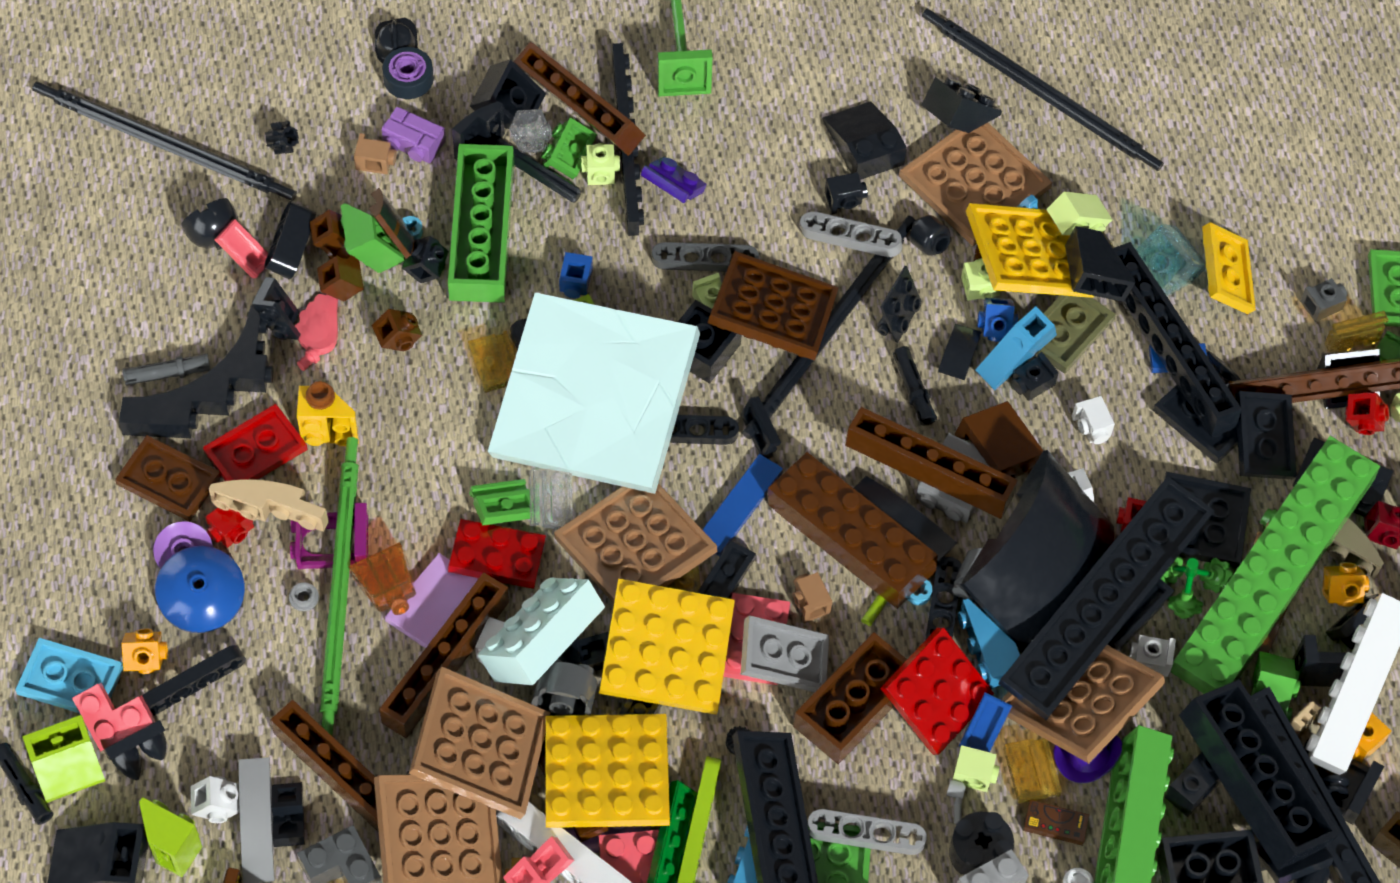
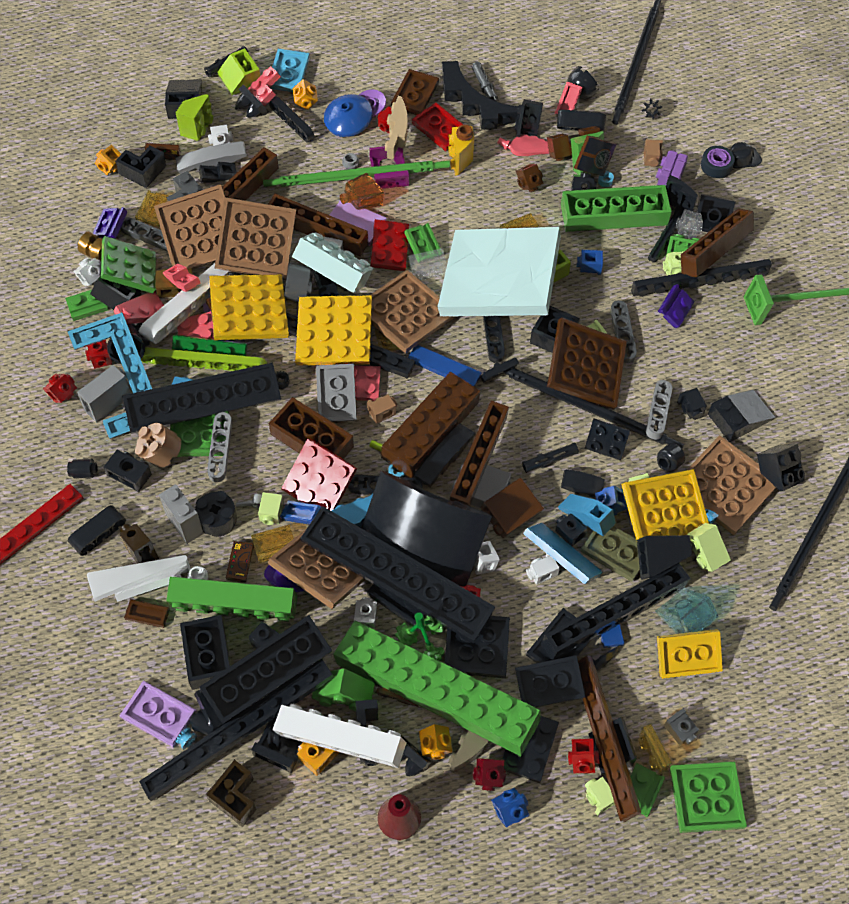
camera: 85 degrees right, 0 degrees up
(1076, 389) = (563, 553): none -> dark azure tile
(1303, 720) = (314, 703): tan tile -> none

